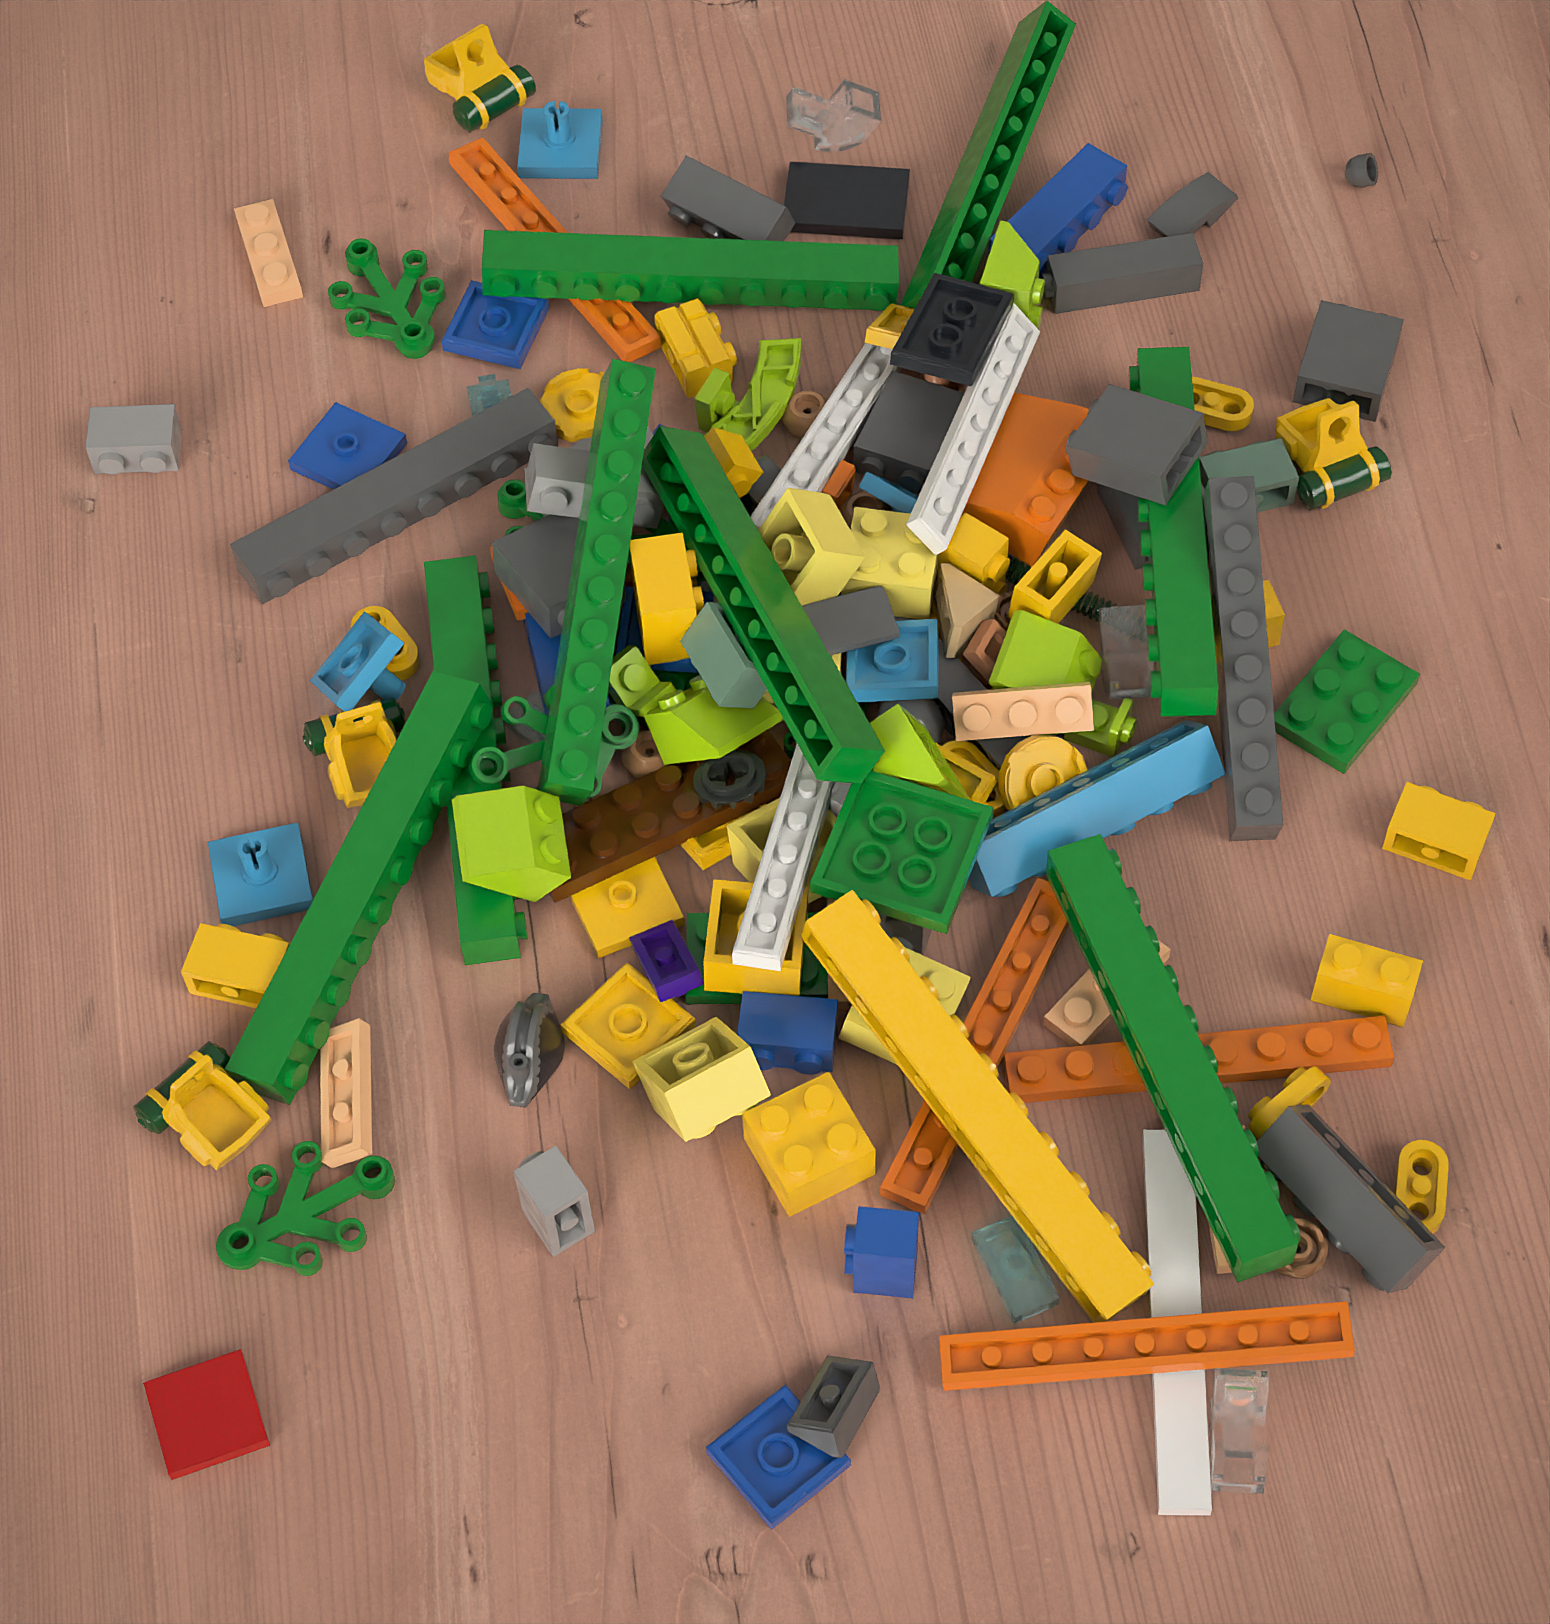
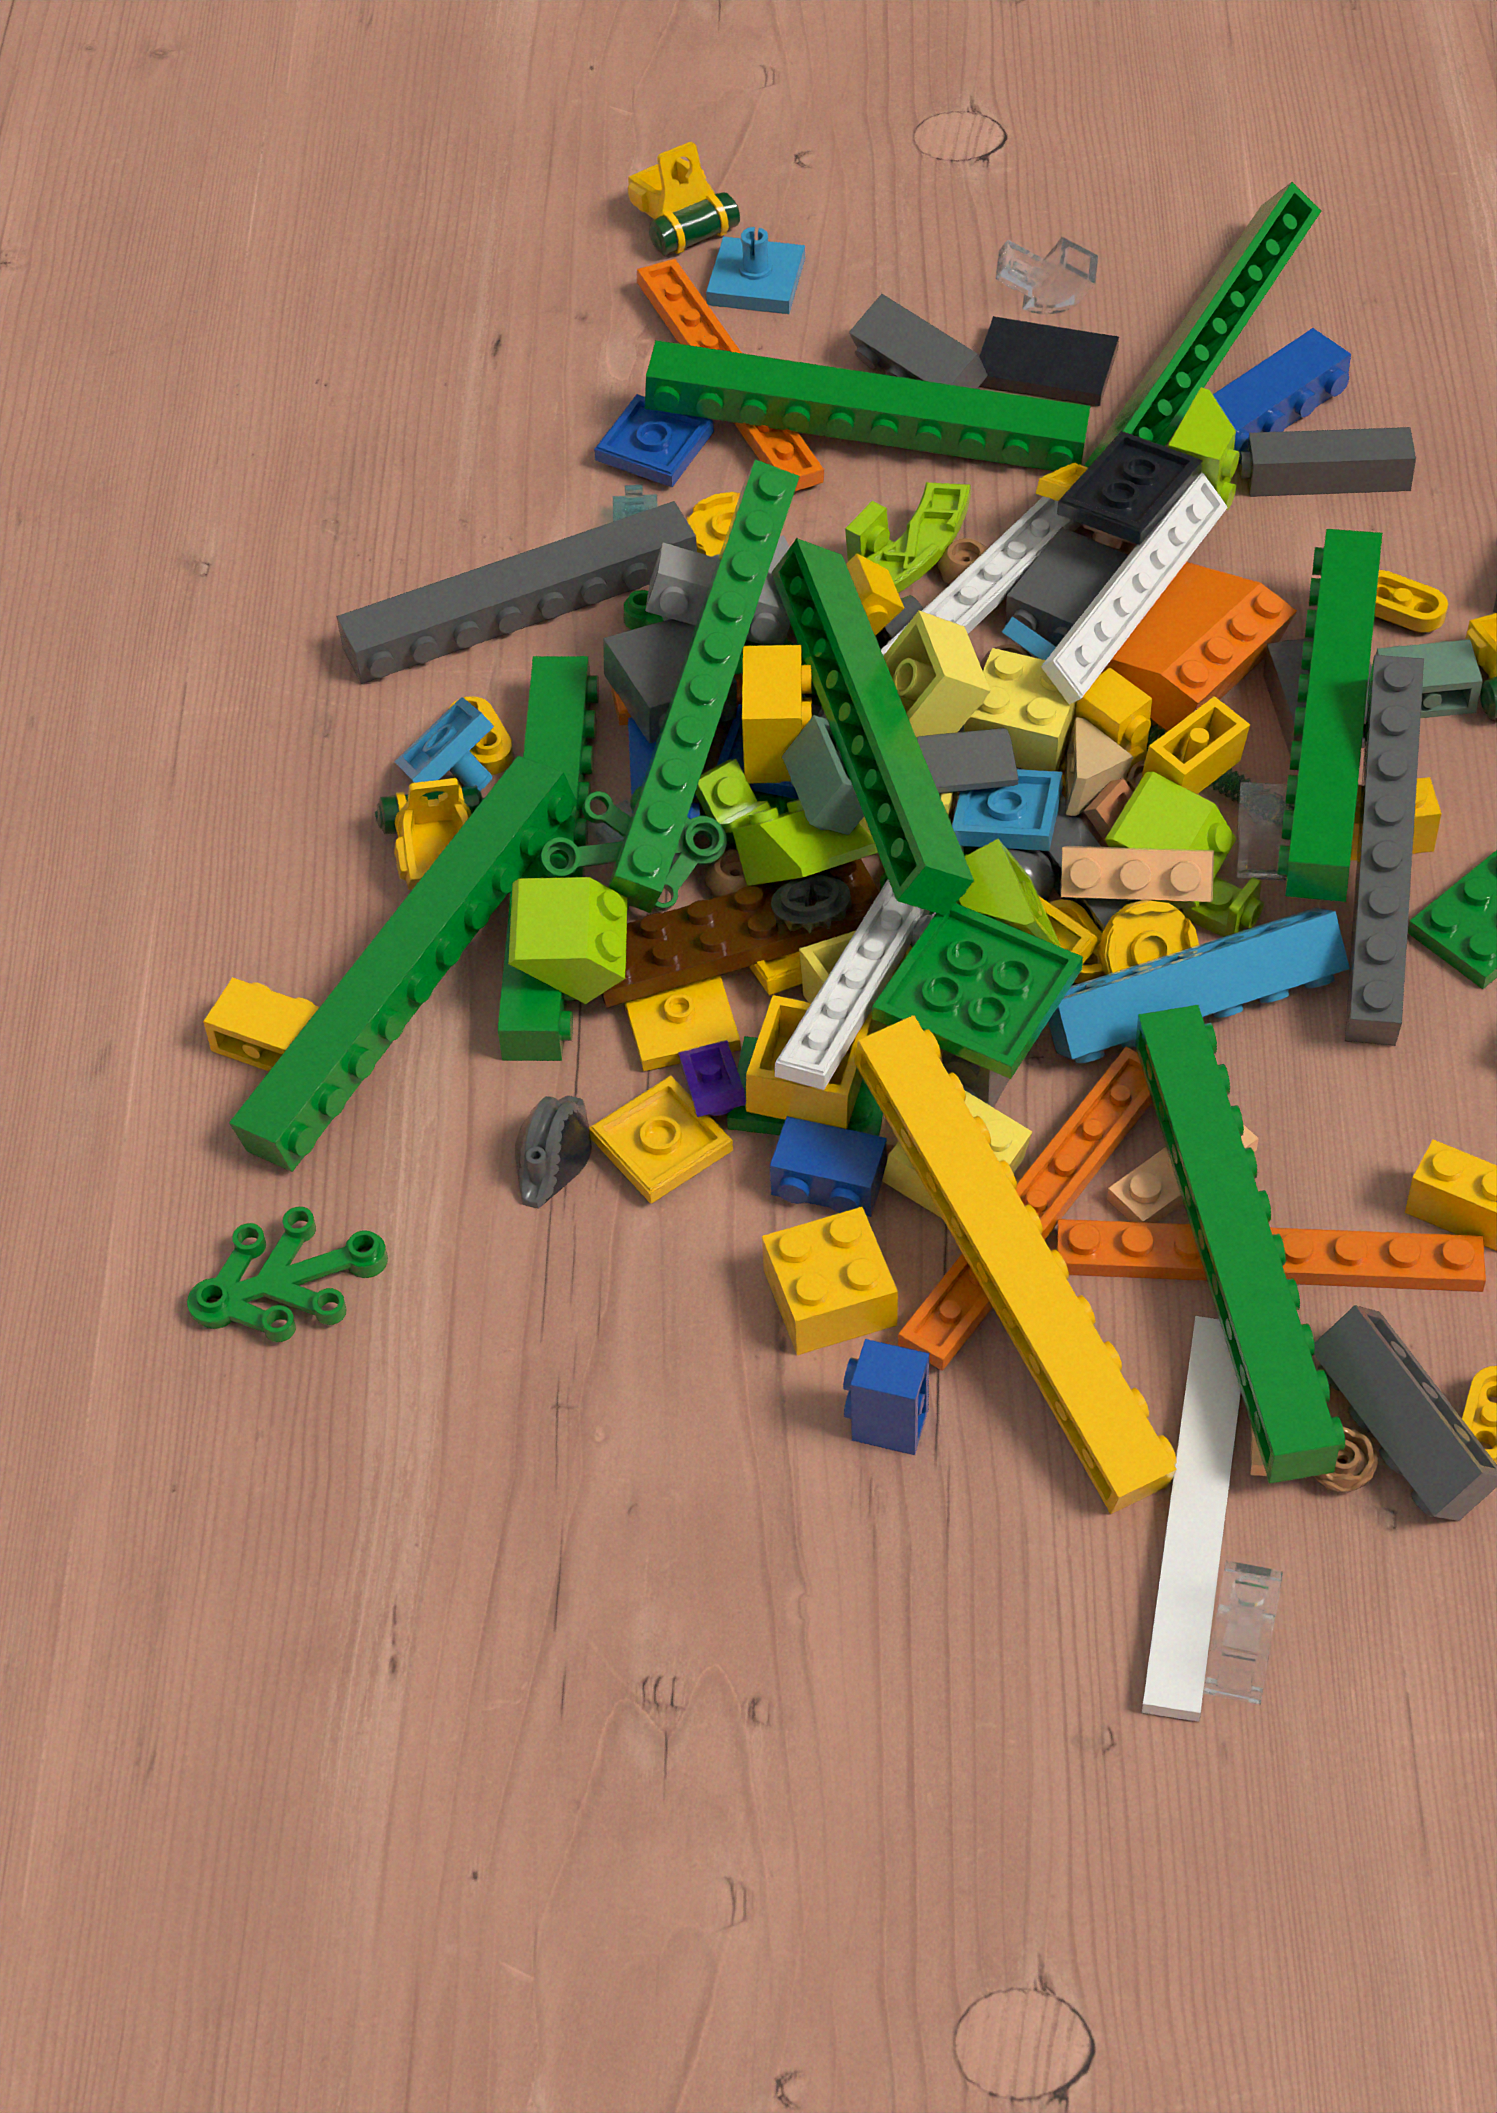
camera: 10 degrees right, 5 degrees down
(134, 439) = (260, 508): light grey brick -> none
(206, 1108) = (204, 1159): yellow piece -> none
(206, 1414) = (145, 1464): red tile -> none
(260, 875) = (305, 942): dark azure tile -> none
(268, 253) = (433, 348): light nougat plate -> none
(345, 447) = (473, 539): blue plate -> none
(346, 1094) = (351, 1167): light nougat plate -> none
(411, 336) = (563, 442): green plant -> none
(554, 1200) = (546, 1297): light grey brick -> none
(693, 344) = (856, 477): yellow brick -> none
(702, 1079) = (726, 1197): light yellow brick -> none
(770, 1464) = (738, 1591): blue plate -> none
(835, 1404) = (810, 1546): dark grey slope -> none
(841, 483) = (987, 633): orange tile -> none
(1015, 1269) = (1030, 1439): clear light blue plate -> none
(1136, 444) = (1306, 618): dark grey brick -> none
(1146, 1346) = (1157, 1532): orange plate -> none
(1192, 206) = (1418, 403): dark grey slope -> none
(1300, 1088) = (1377, 1293): yellow plate -> none

